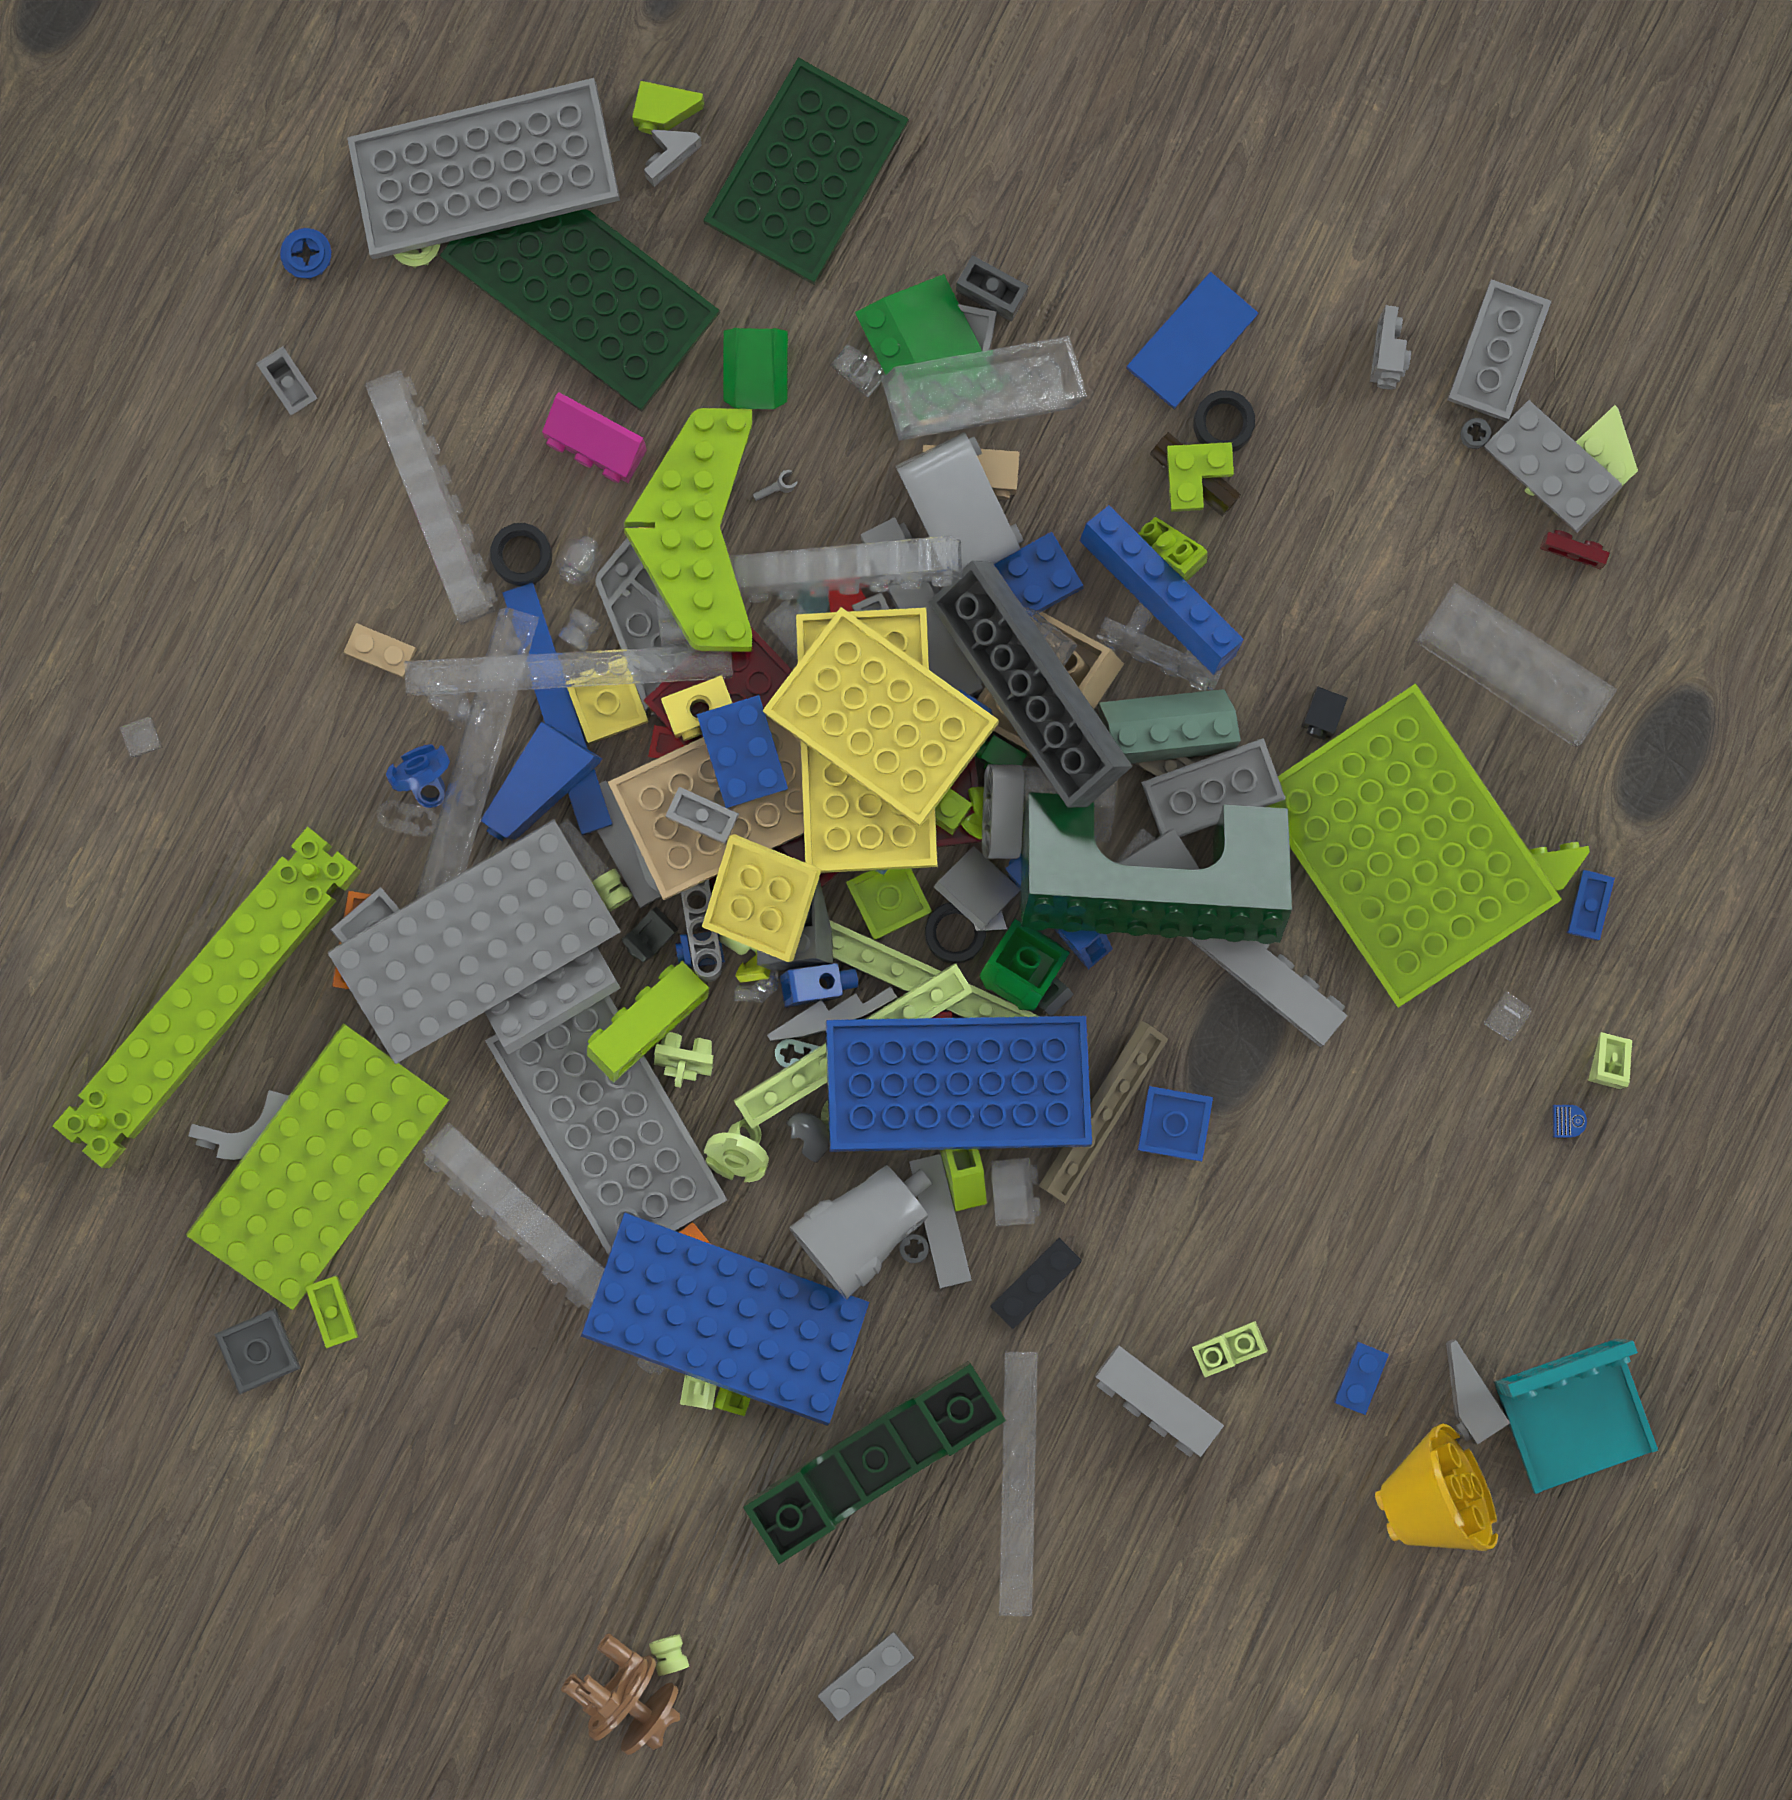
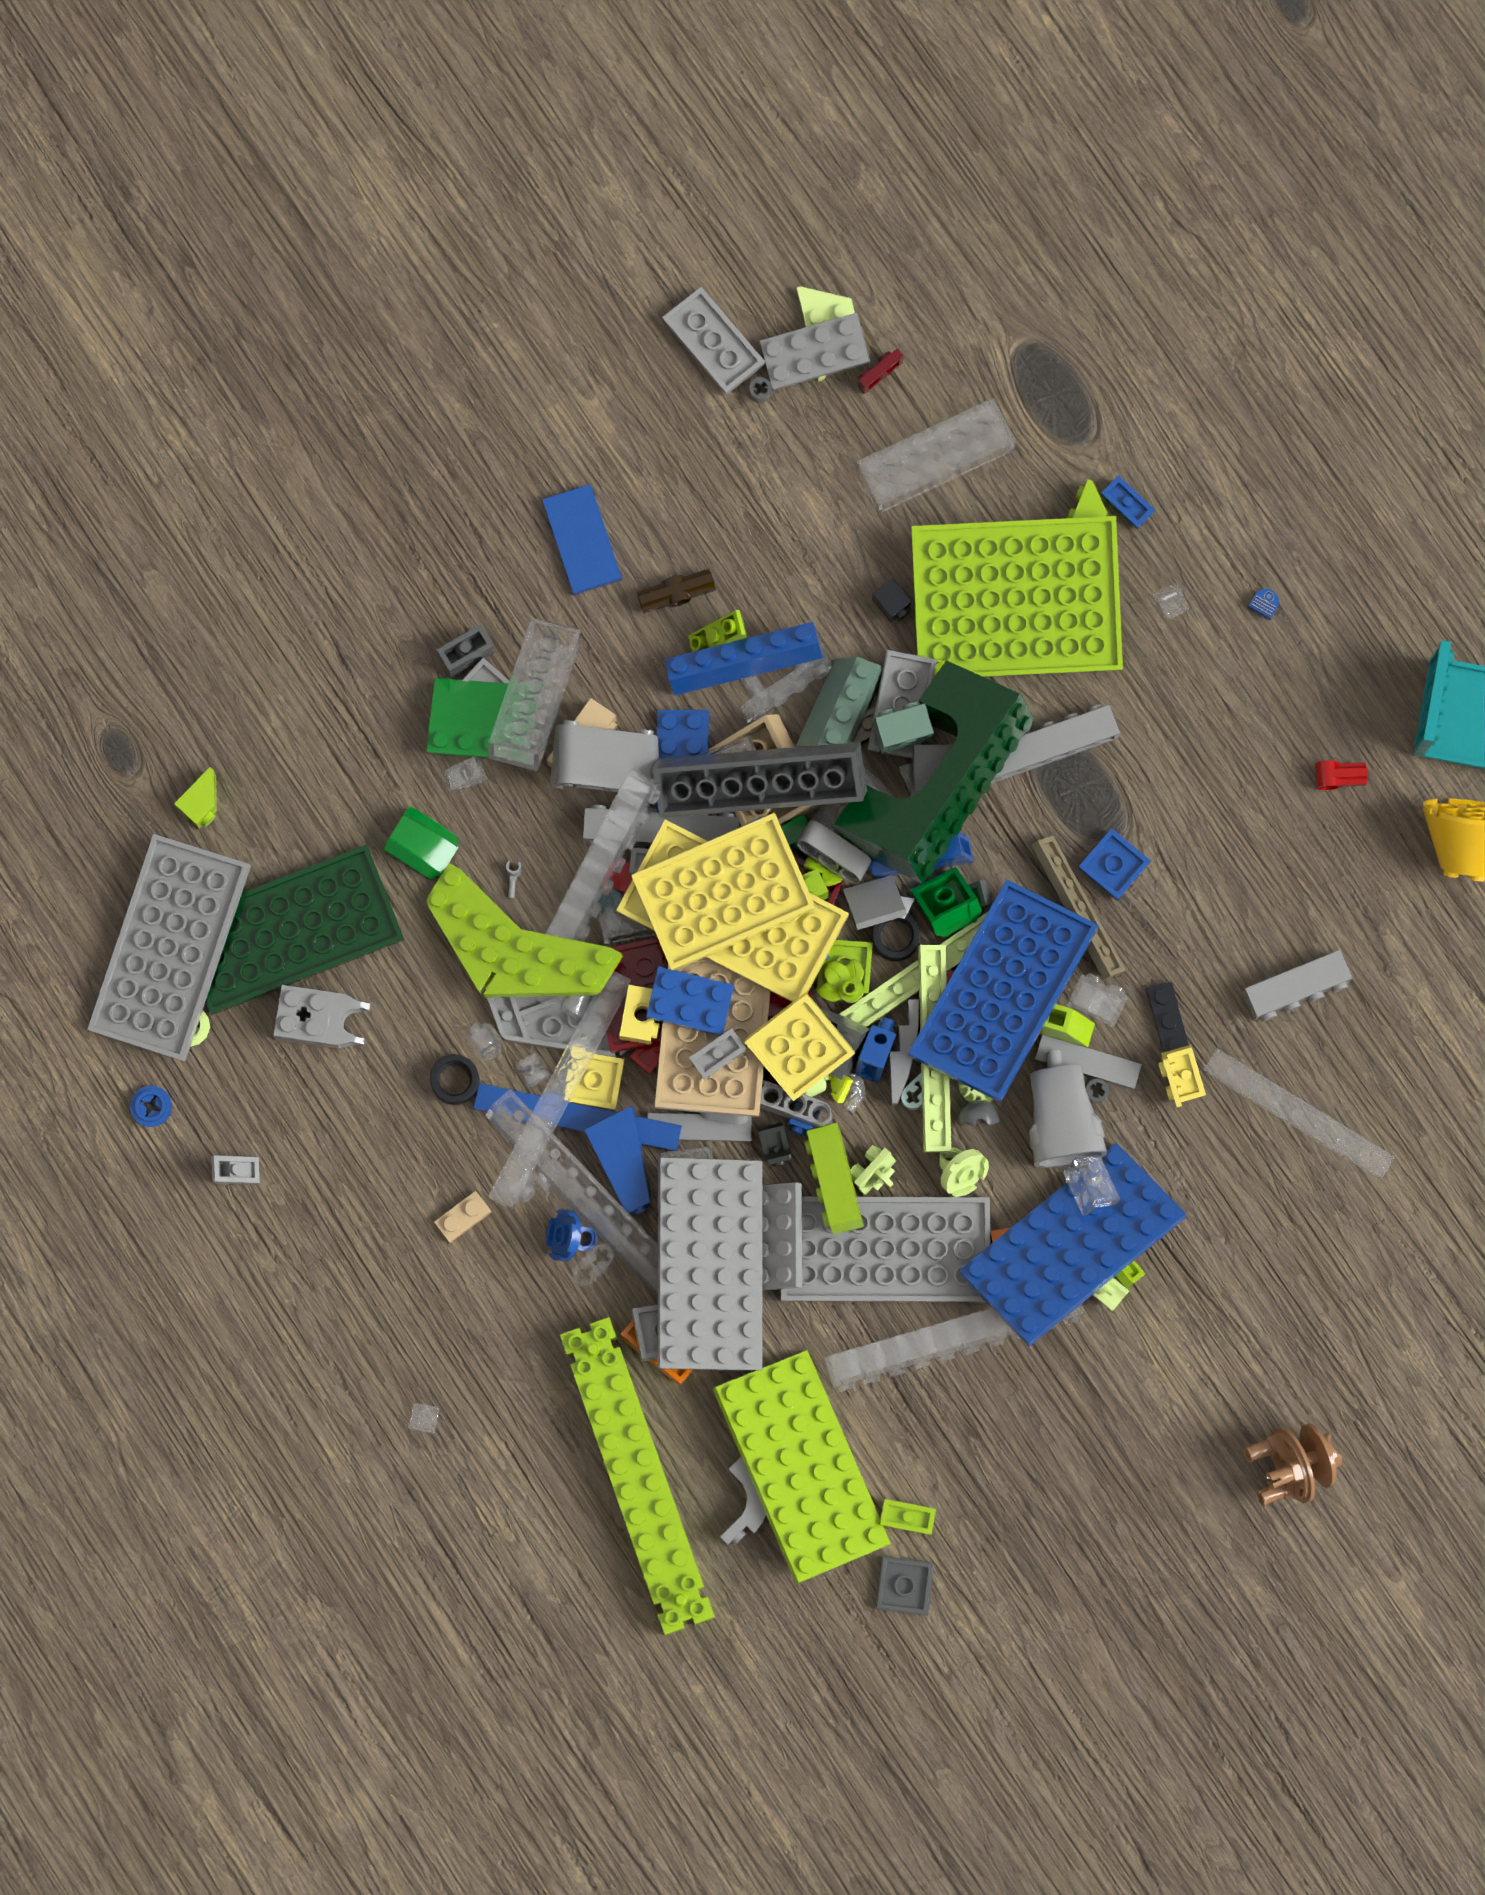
camera: 60 degrees left, 5 degrees down
(430, 496) = (377, 1118): clear brick -> none
(505, 379) = (326, 1021): none -> light grey brick
(593, 439) = (405, 981): dark pink slope -> none
(611, 882) = (727, 1151): yellowish green wheel -> none
(669, 1655) = (1280, 1418): yellowish green wheel -> none
(676, 148) = (233, 808): light grey slope -> none
(802, 1301) = (1090, 1183): none -> clear bracket
(806, 171) = (305, 729): dark green plate -> none
(865, 1676) = (1371, 1294): light grey plate -> none
(868, 899) = (839, 979): none -> lime plate
(873, 1461) = (1225, 1150): dark green arch -> none
(983, 1331) = (1182, 1075): none -> light yellow bracket
(1182, 804) = (902, 727): none -> sand green brick
(1189, 465) = (670, 588): lime plate -> none
(1225, 397) = (655, 531): black tyre -> none
(1230, 1349) = (1289, 918): yellowish green slope -> none
(1361, 1378) = (1359, 842): blue plate -> none
(1390, 353) = (674, 414): light grey plate -> none
(1419, 1307) = (1333, 775): none -> red piece
(1473, 1403) = (1418, 776): light grey slope -> none
(1612, 1061) = (1242, 550): yellowish green slope -> none

